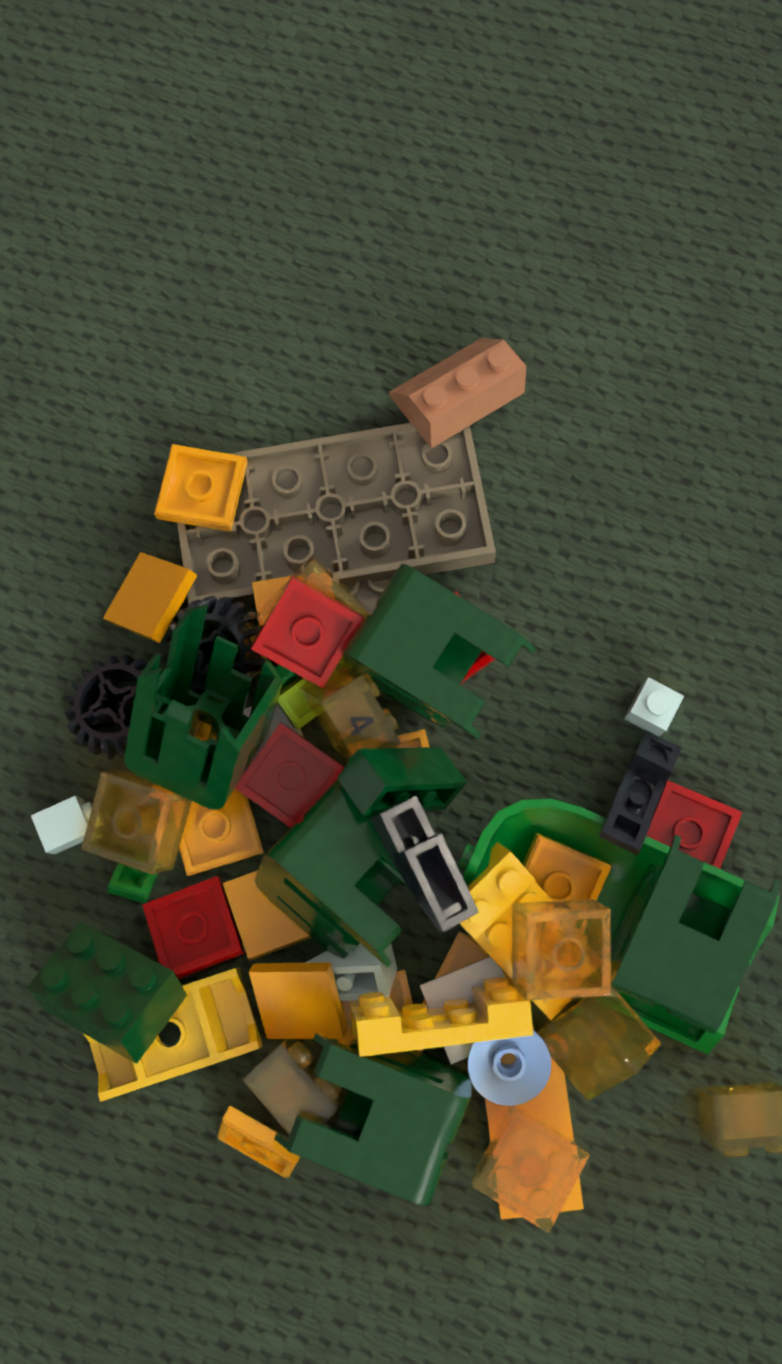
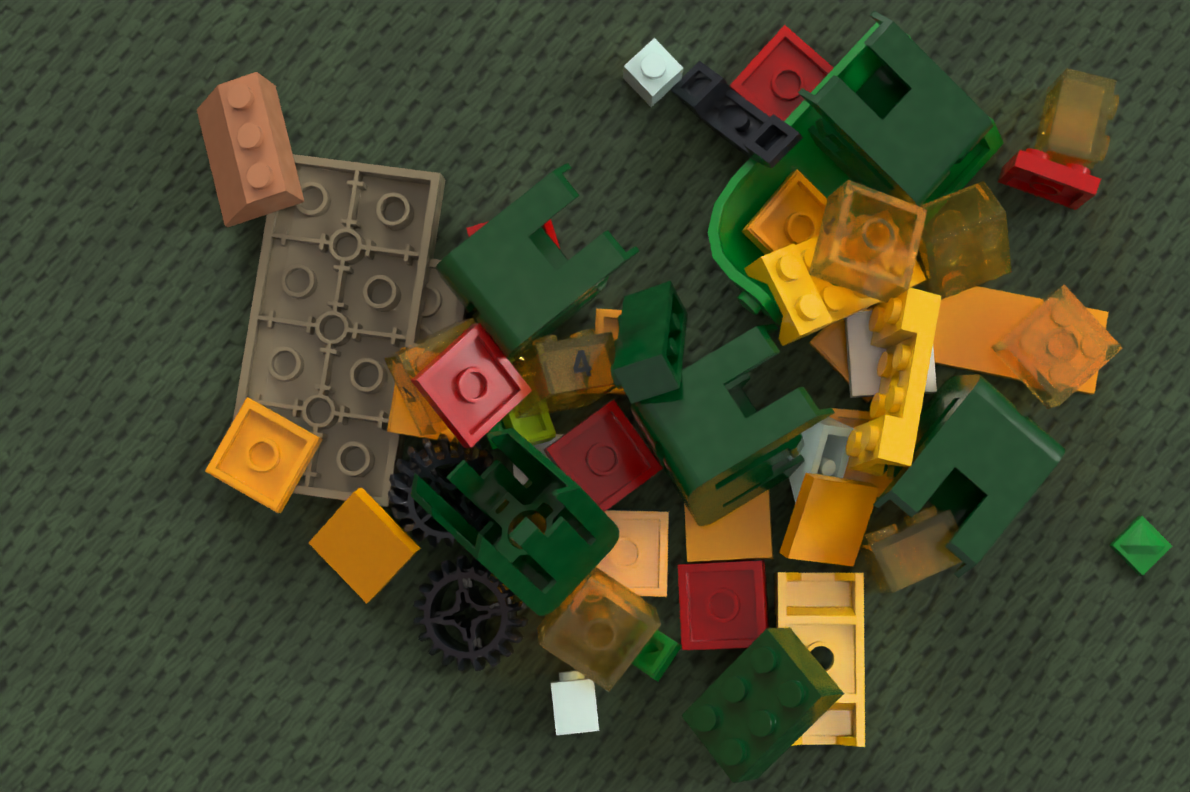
camera: 80 degrees left, 5 degrees up
(256, 1142) = (952, 602): light orange tile -> none
(372, 1312) = (1140, 545): none -> green tile
(425, 863) = (745, 343): black slope -> none
(513, 1082) = (972, 335): light blue dish -> none
(687, 1096) = (1037, 175): none -> red plate

